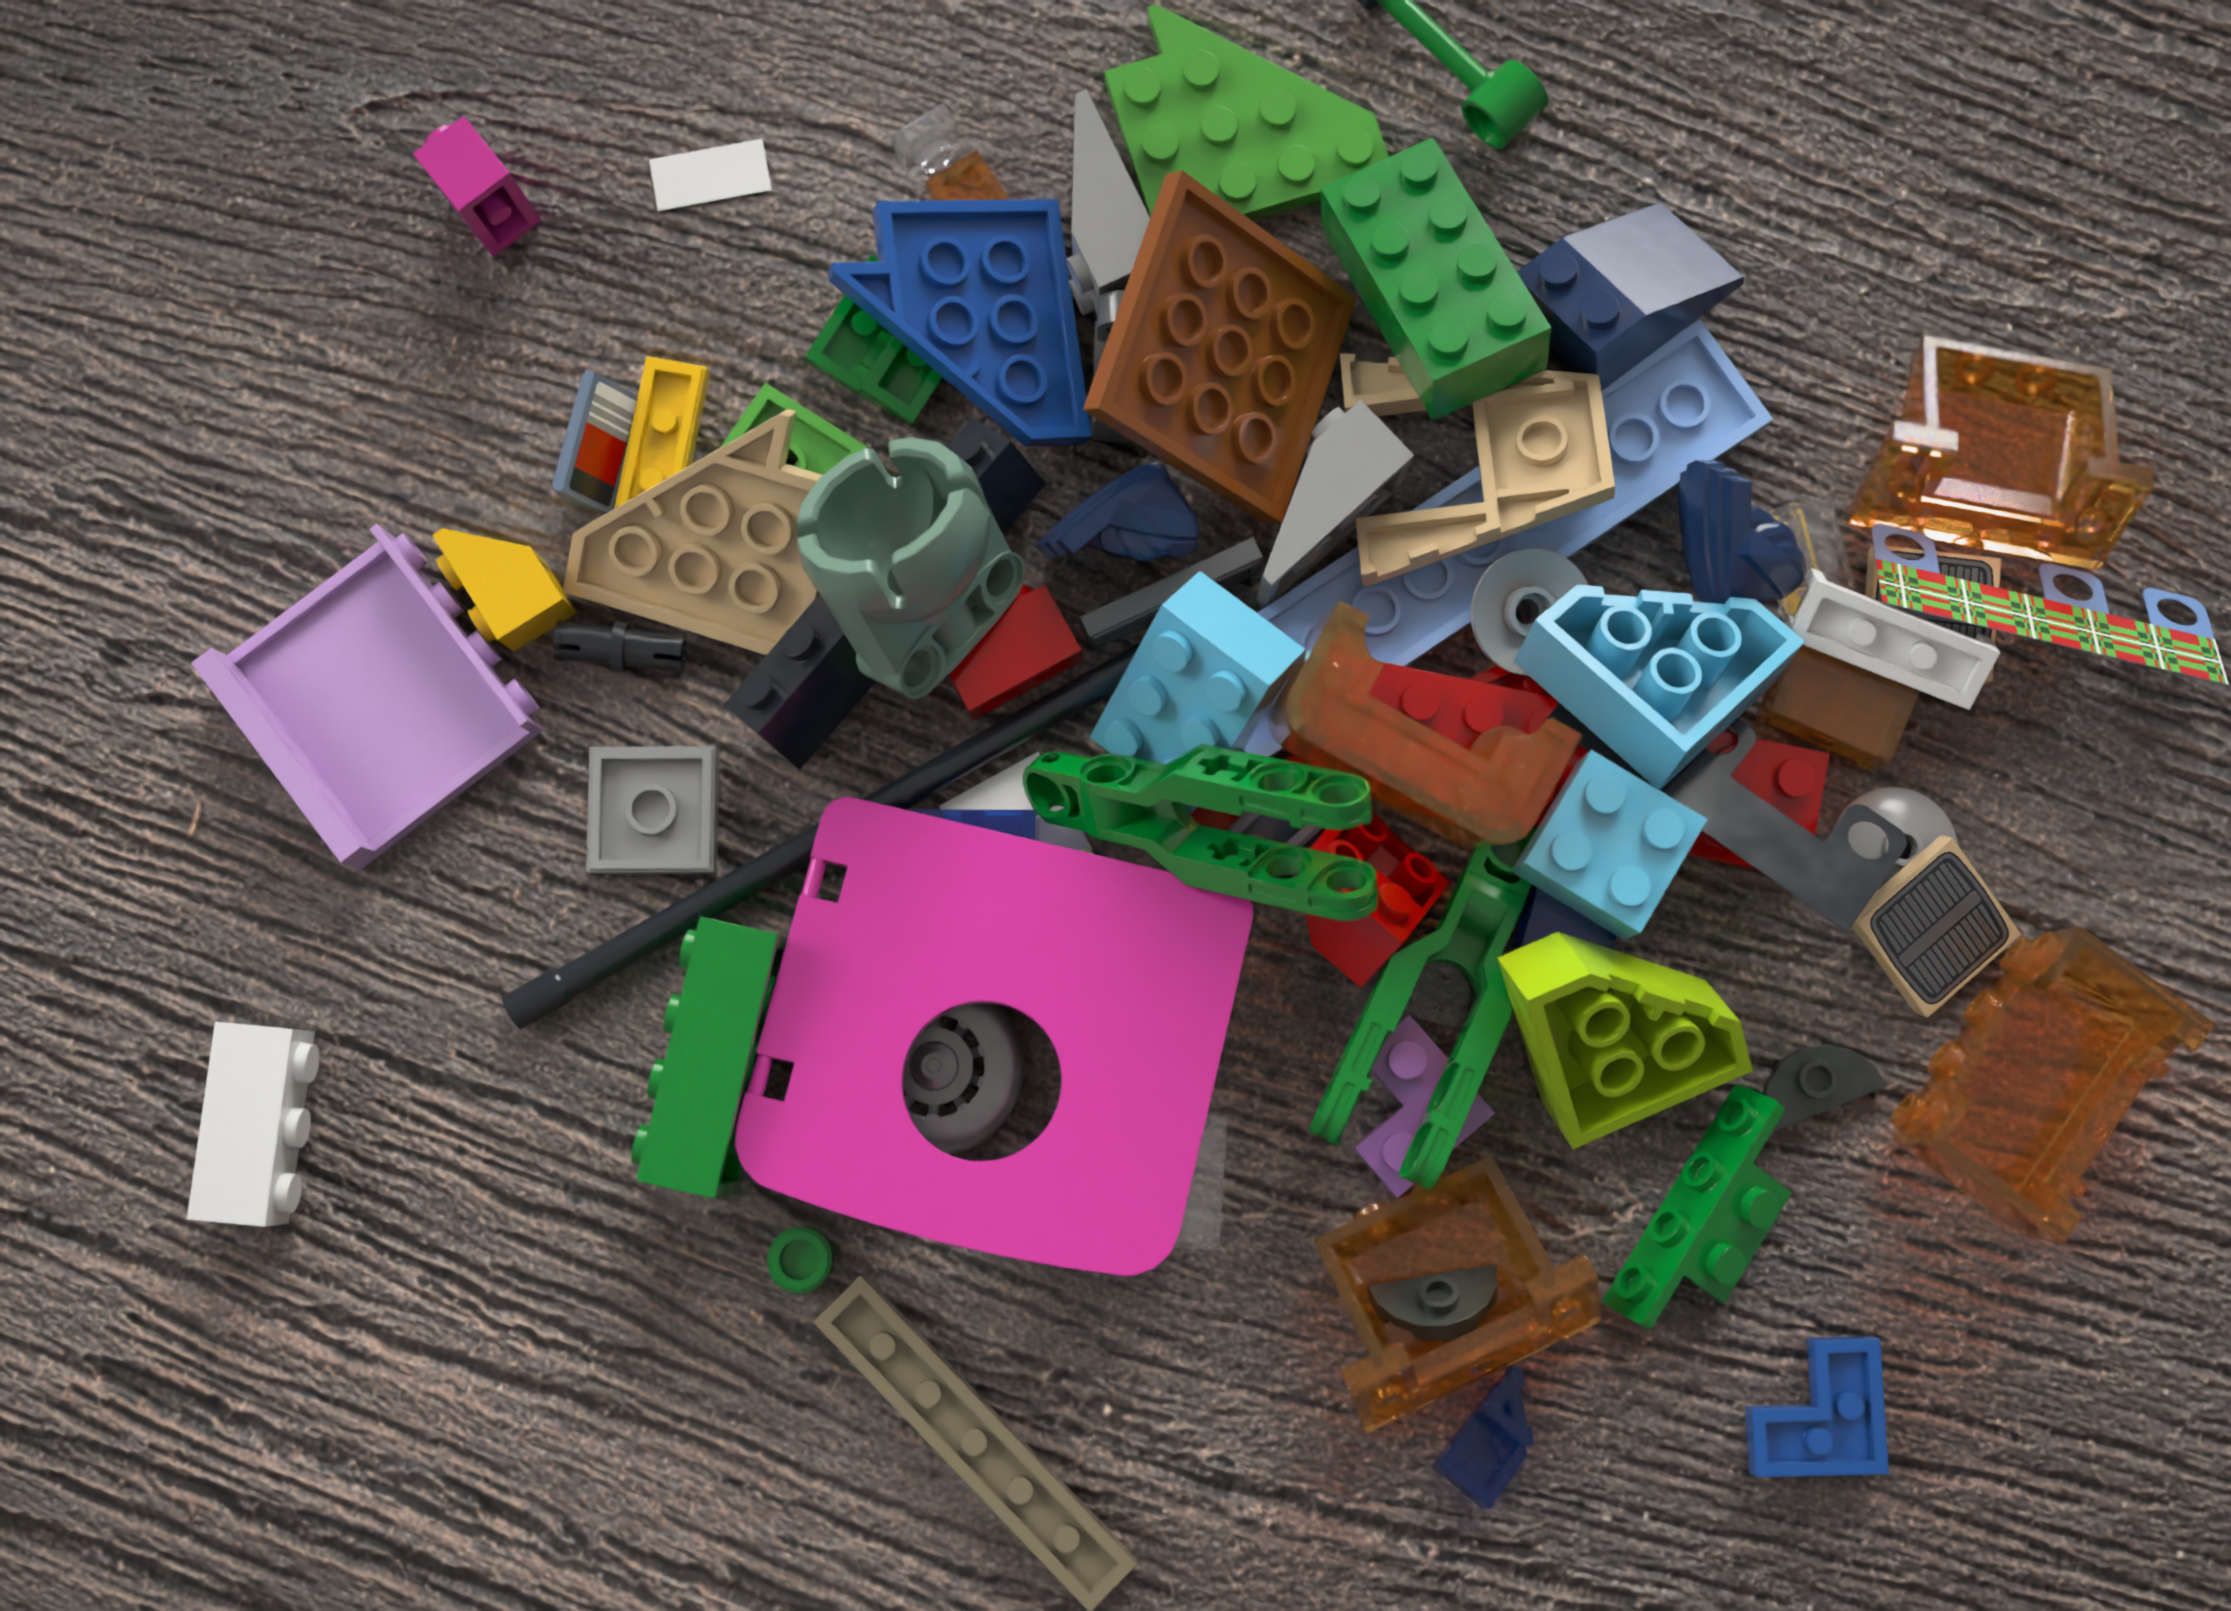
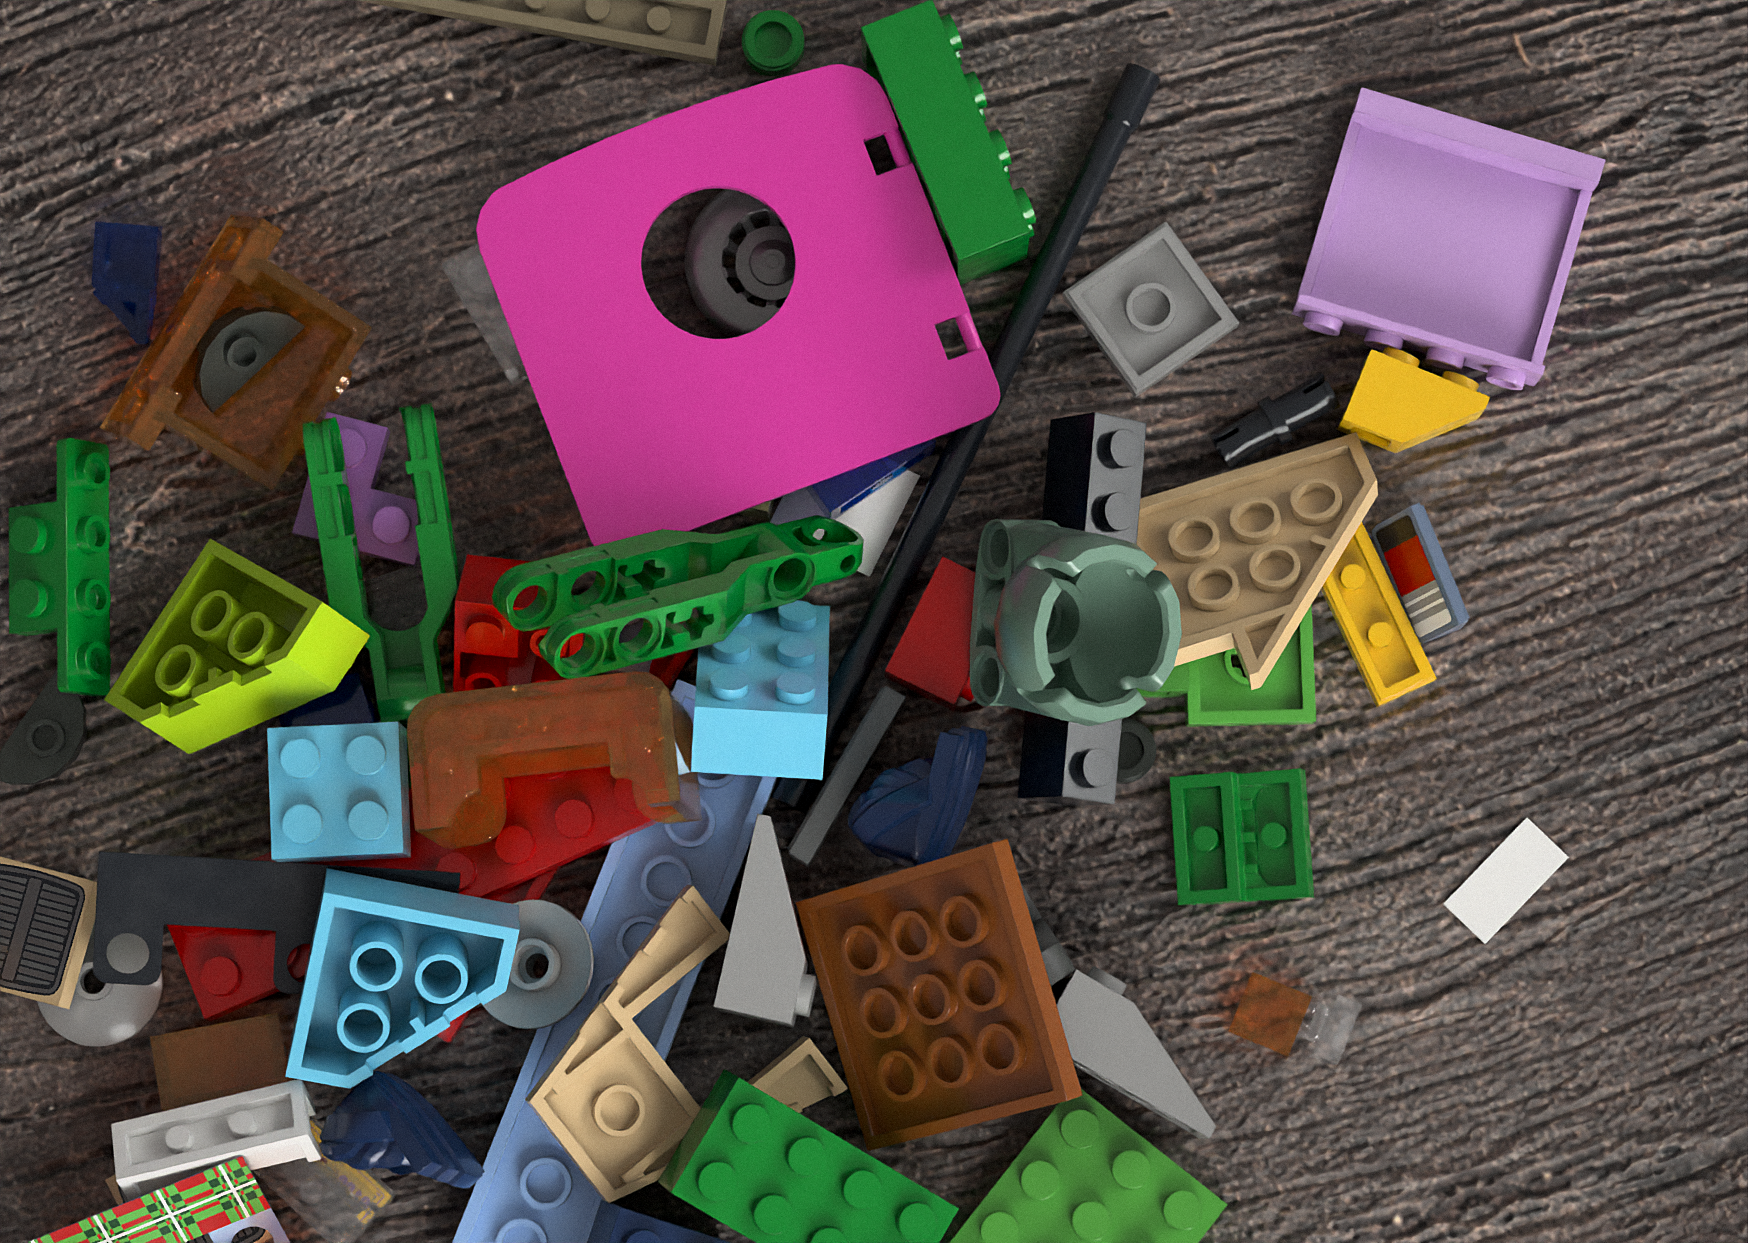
camera: 145 degrees right, 0 degrees up
(477, 185) = (1680, 714): dark pink brick -> none
(983, 304) = (1177, 912): blue wing -> none

